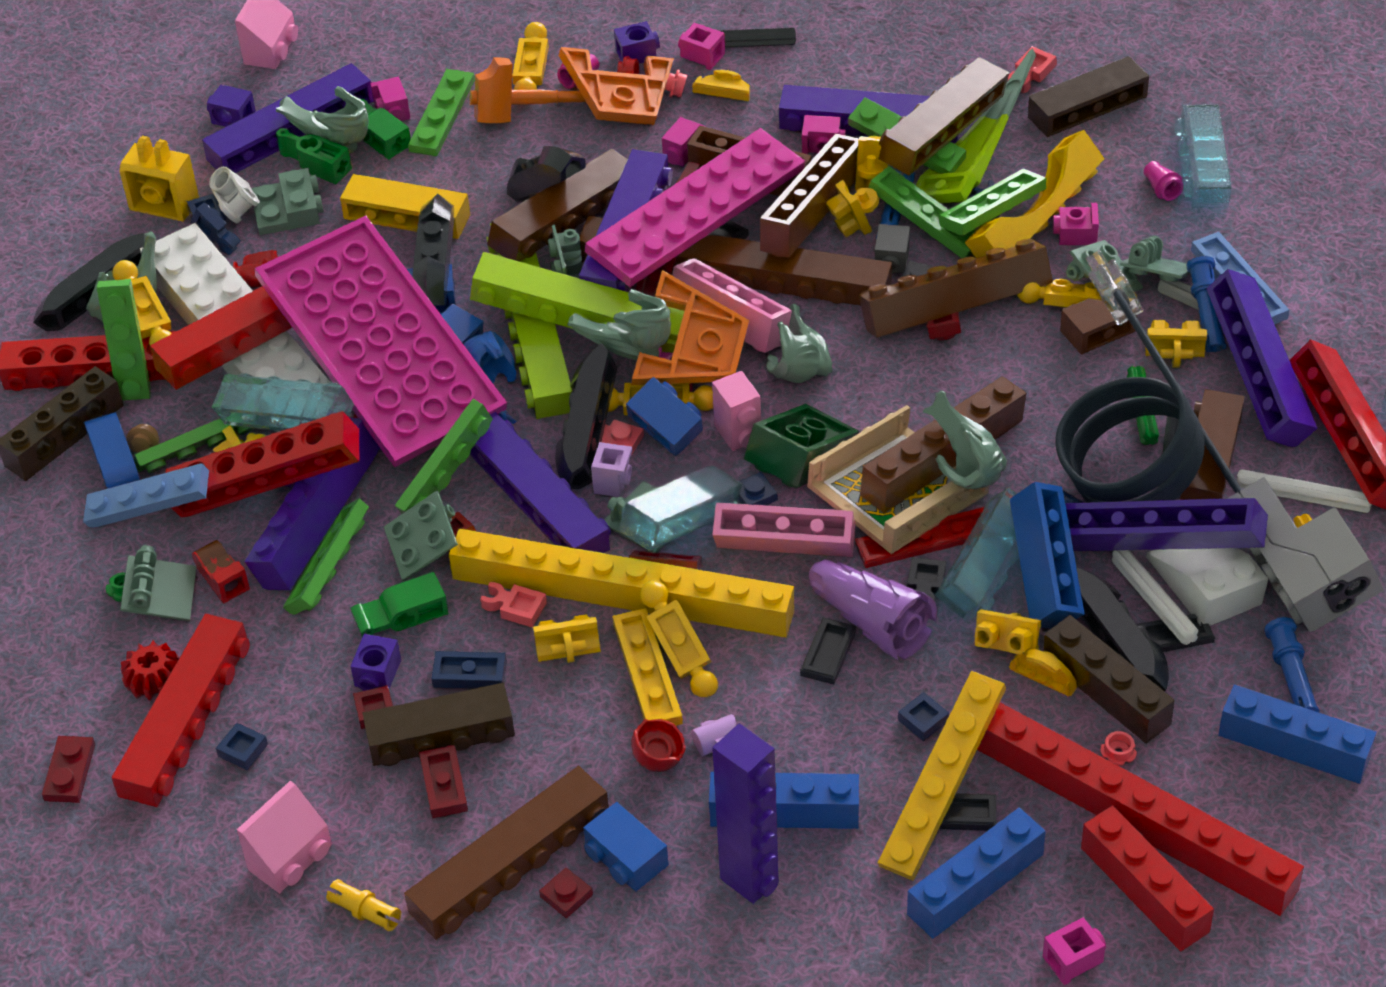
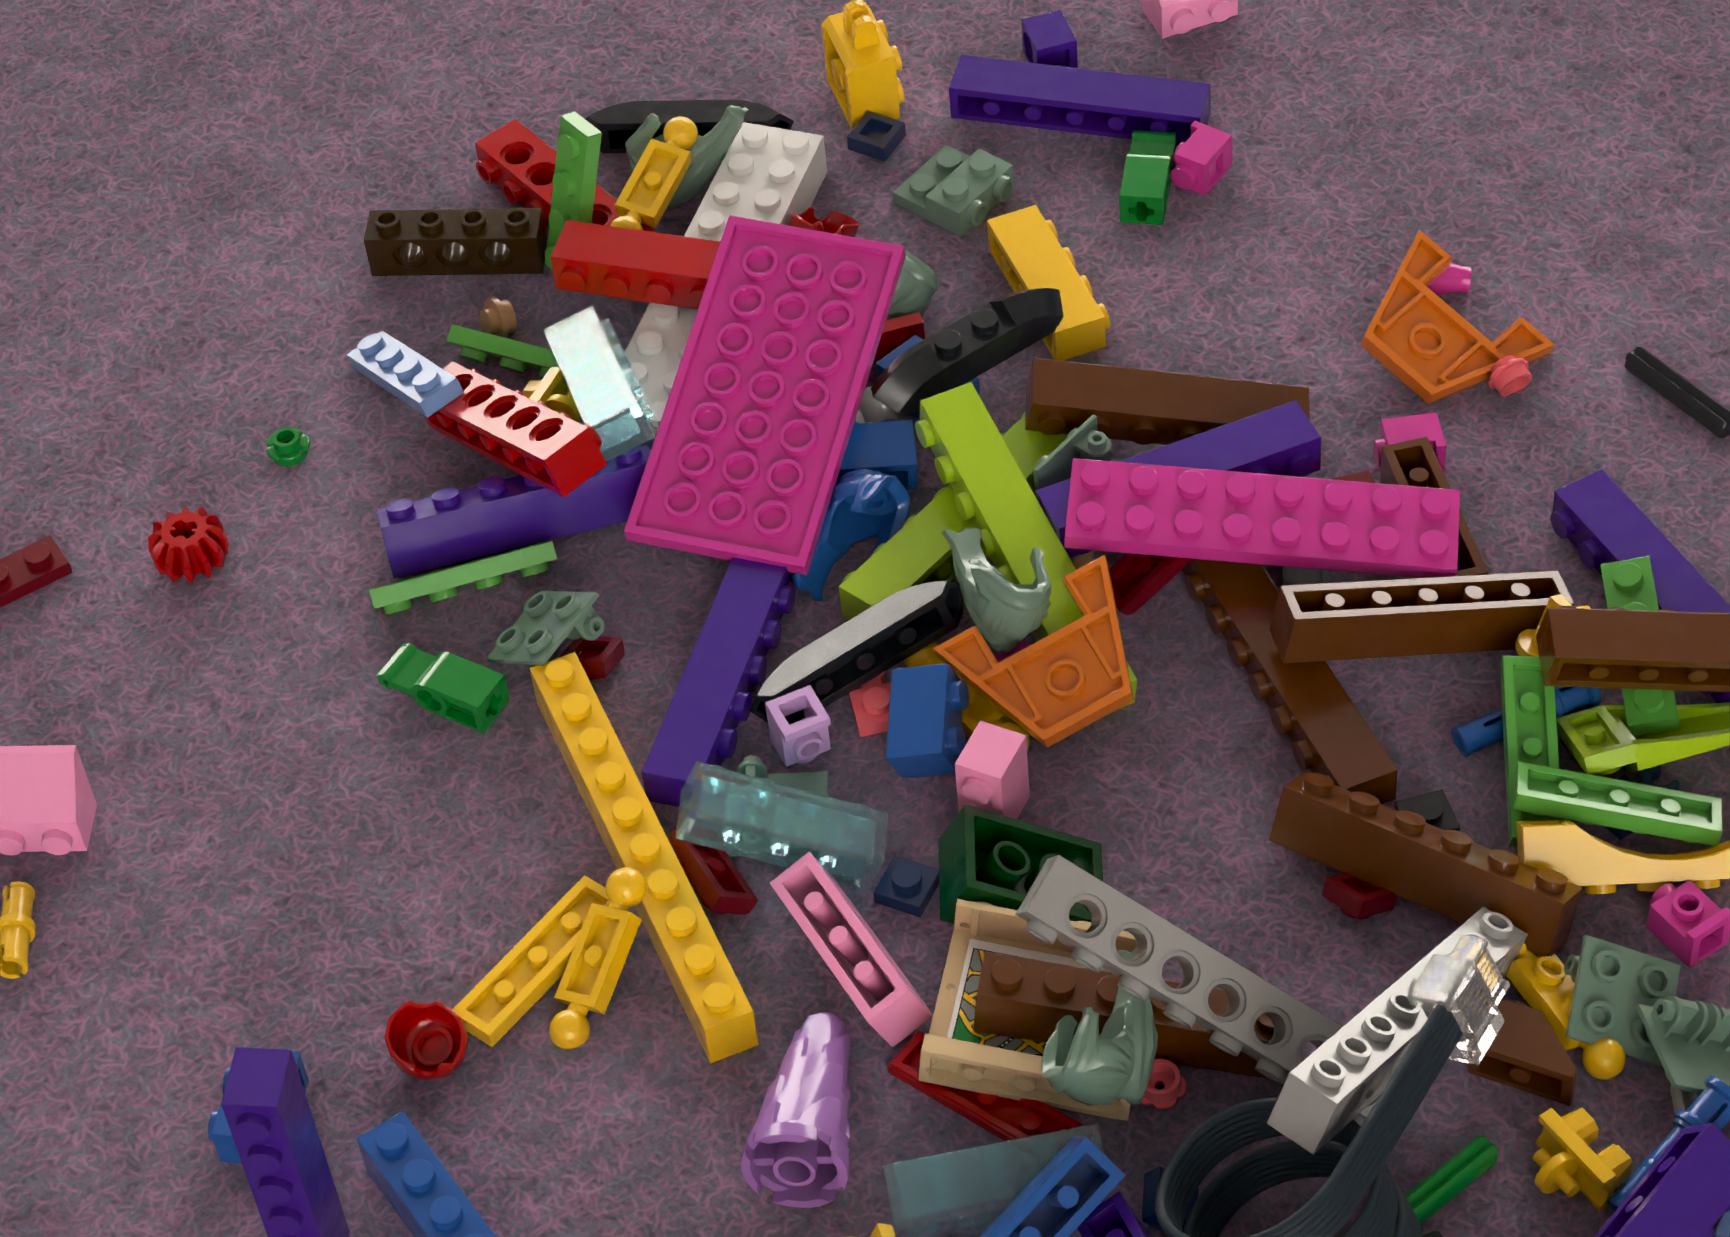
camera: 55 degrees right, 0 degrees up
(111, 450) = (456, 303): blue beam -> none
(157, 586) = (304, 472): sand green hinge -> none
(181, 711) = (155, 603): red brick -> none
(213, 226) = (847, 150): dark blue plate -> none
(220, 569) = (371, 491): red leg -> none
(232, 193) = (912, 137): white piece -> none
(241, 746) = (148, 686): dark blue plate -> none
(319, 155) = (1048, 160): green piece -> none
(343, 127) = (1091, 143): sand green hair -> none
(371, 700) = (288, 757): dark red plate -> none
(375, 662) = (343, 717): dark purple brick -> none
(439, 722) = (303, 828): dark brown brick -> none
(441, 112) = (1239, 212): bright green plate -> none
(443, 781) = (232, 885): dark red plate -> none
(447, 456) = (670, 571): bright green plate -> none
(468, 669) = (406, 803): dark blue plate -> none
(495, 95) = (1290, 237): orange piece -> none
(506, 853) = (171, 1004): reddish brown brick -> none
(518, 605) = (536, 780): coral plate -> none
(531, 58) = (1397, 227): yellow plate -> none
(543, 171) = (1181, 349): black brick -> none
(566, 638) = (515, 857): yellow hips -> none
(566, 892) = (166, 1096): dark red plate -> none
(628, 66) = (1489, 315): red plate -> none
(636, 41) = (1535, 294): dark purple brick -> none
(702, 45) = (1601, 355): dark pink brick -> none
(712, 732) = (491, 1088): lavender piece -> none
(723, 84) = (1560, 418): yellow plate -> none
(758, 309) = (1170, 664): bright pink brick -> none
(802, 352) = (1161, 789): sand green hair -> none
(818, 131) = (1572, 557): dark pink brick -> none
(828, 651) = (714, 1116): black tile -> none
(851, 209) = (1455, 672): yellow hips -> none
(893, 246) = (1439, 757): dark grey brick -> none
(926, 575) = (903, 1138): black plate -> none
(987, 386) = (1047, 913): none -> light grey brick
(1077, 337) = (1364, 1054): none -> light grey brick

